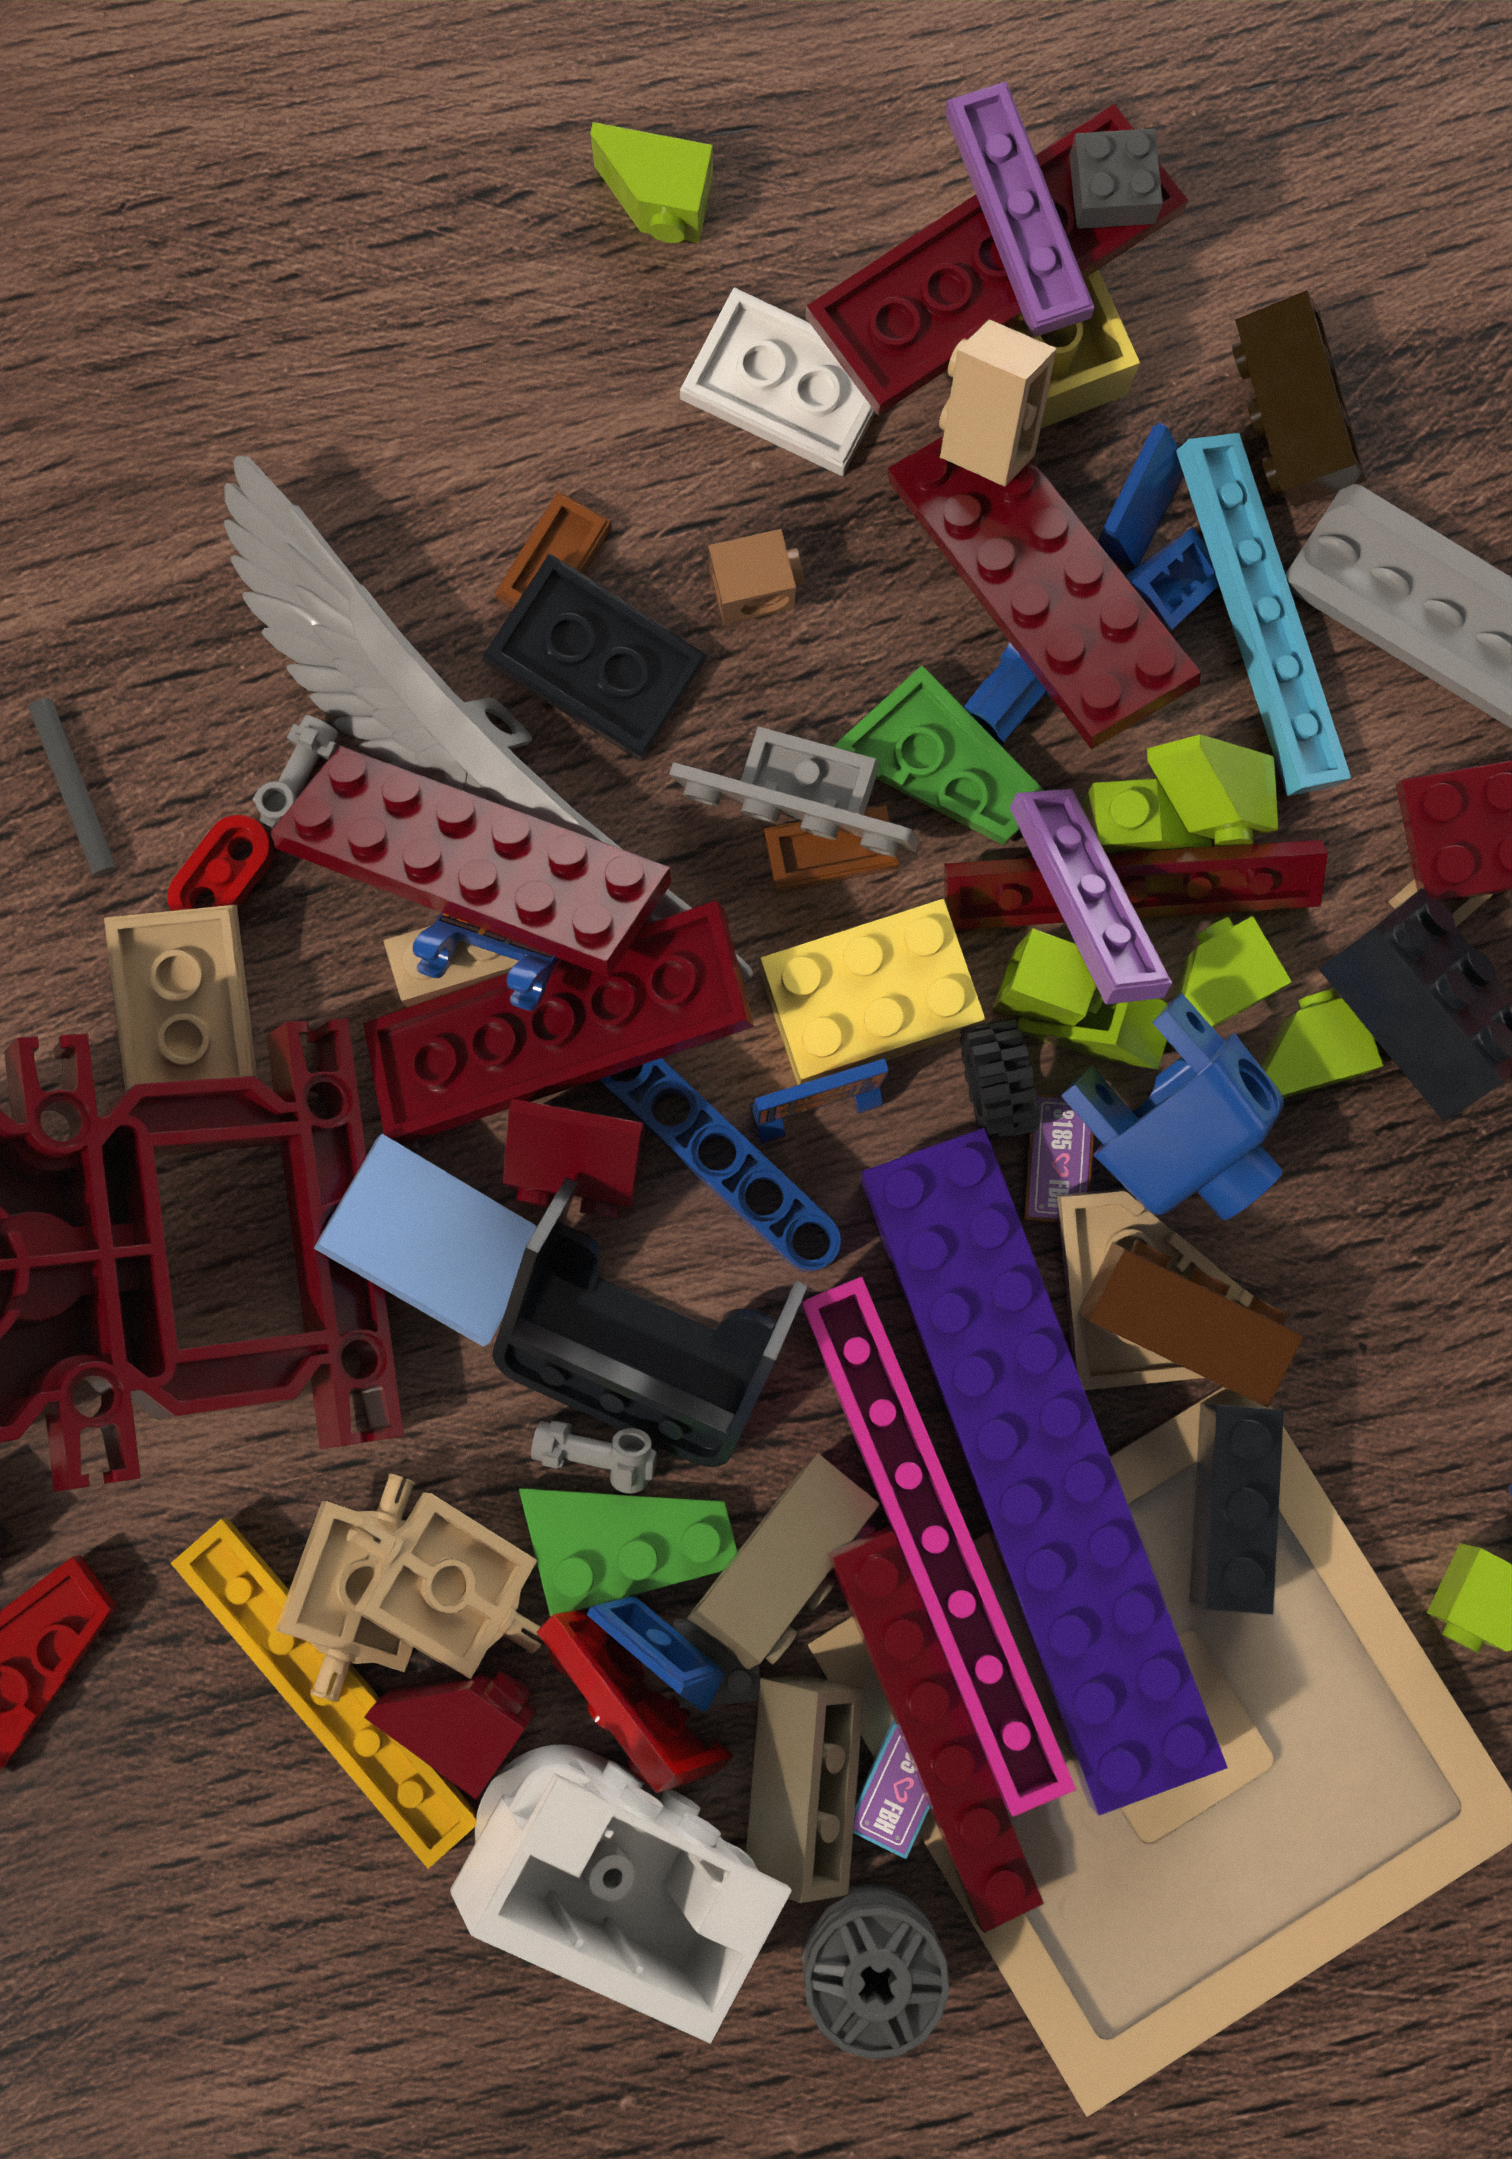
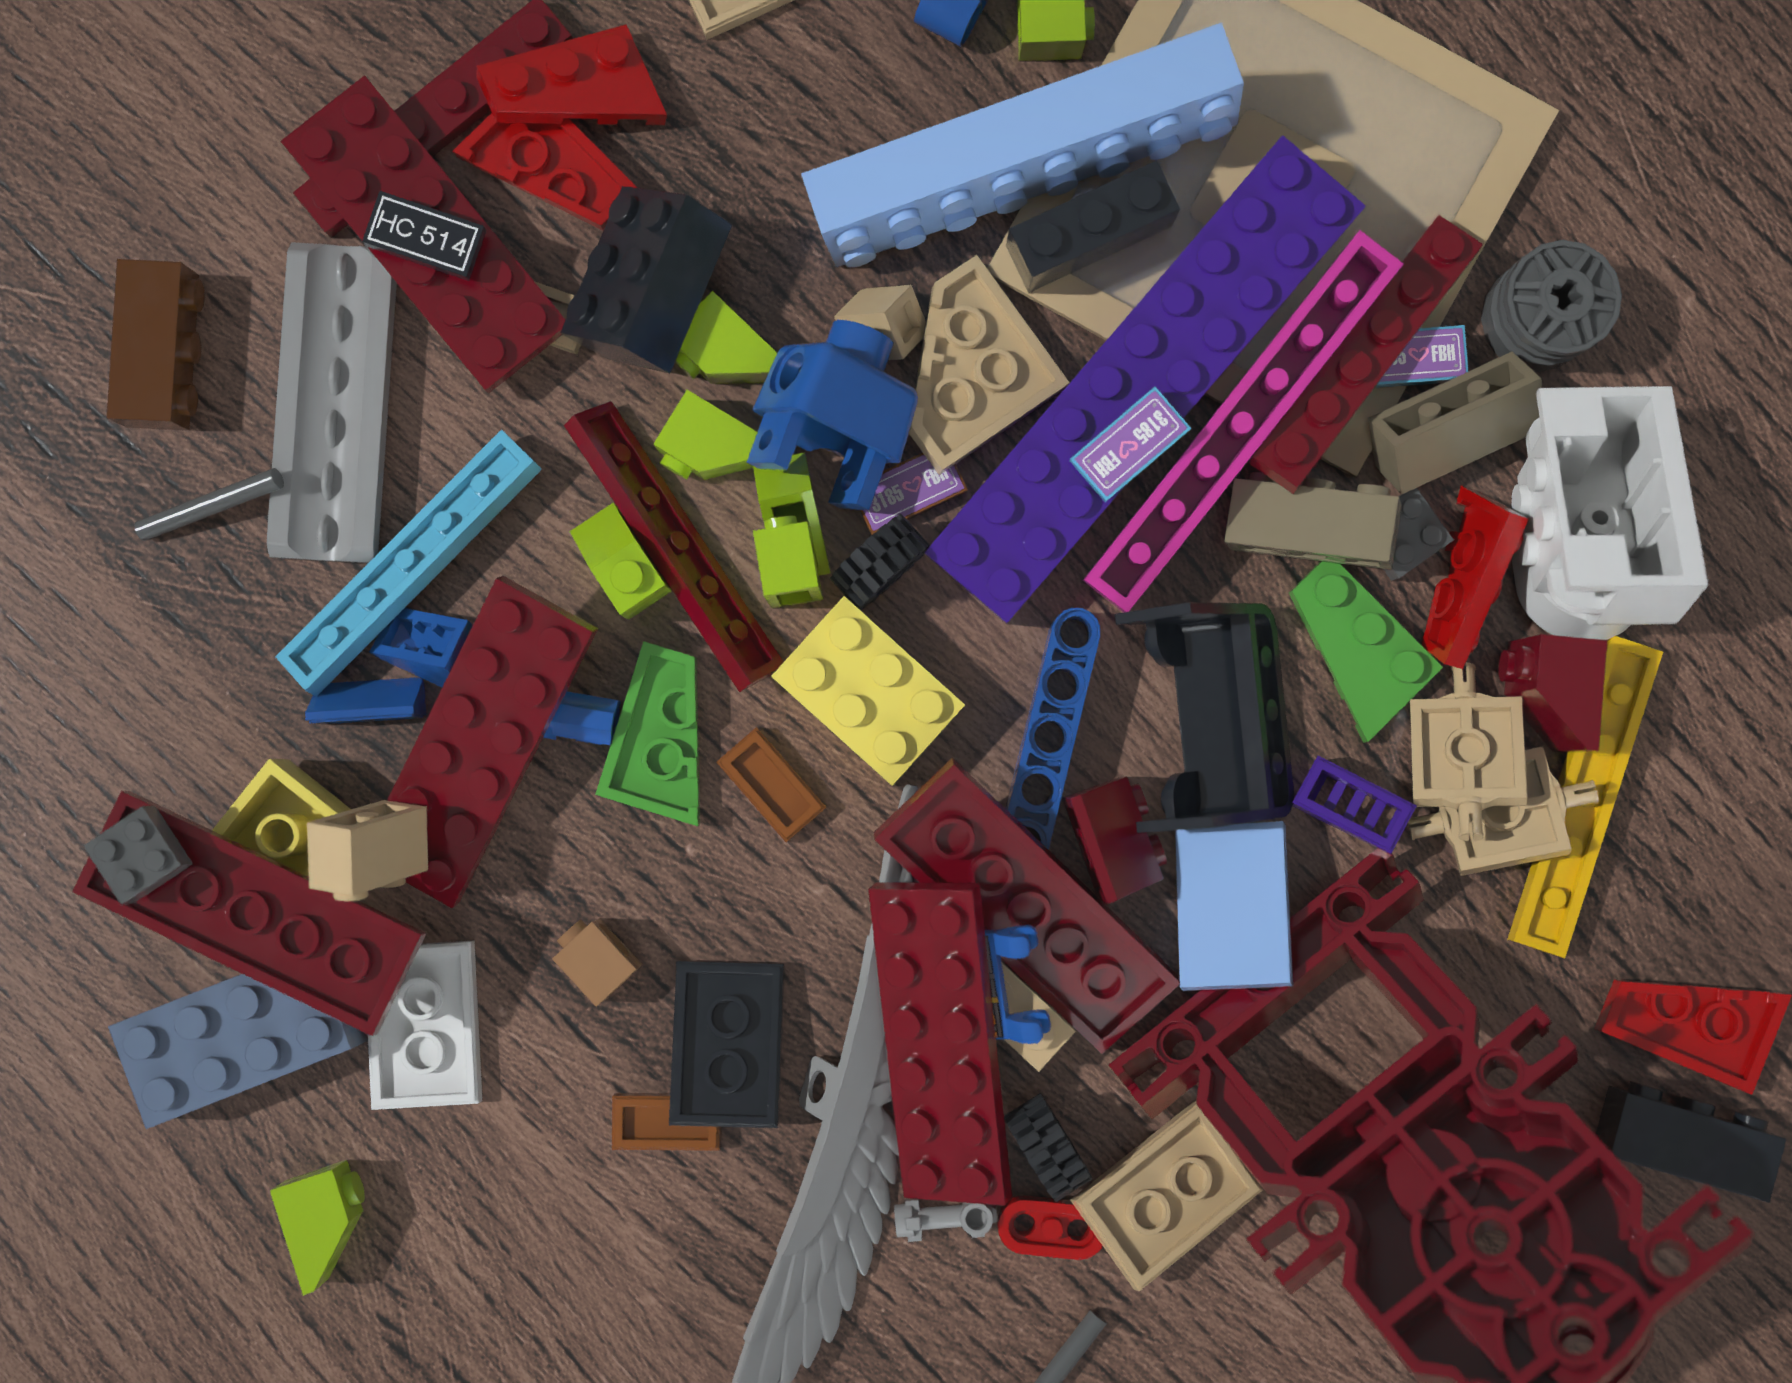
camera: 110 degrees left, 5 degrees up
(301, 909) = (1047, 1147): none -> black tyre
(506, 1400) = (1312, 785): none -> dark purple slope
(627, 1457) = (1302, 677): light grey bar -> none
(660, 1649) = (1424, 576): blue slope -> none
(805, 782) = (737, 830): light grey bracket -> none
(858, 1082) = (943, 656): blue flag -> none
(880, 168) = (221, 1045): none -> sand blue brick
(979, 1402) = (1130, 444): none -> medium lavender tile
(1019, 209) = (203, 916): medium lavender tile -> none
(1090, 896) = (711, 568): medium lavender tile -> none
(1191, 1321) = (980, 328): reddish brown brick -> none
(1218, 788) = (570, 519): lime slope -> none
(1257, 1238) = (890, 311): none -> tan panel
(1297, 400) = (225, 625): dark brown brick -> none
(1362, 1483) = (1027, 147): none -> light blue brick
(1430, 452) = (209, 504): none -> dark grey bar

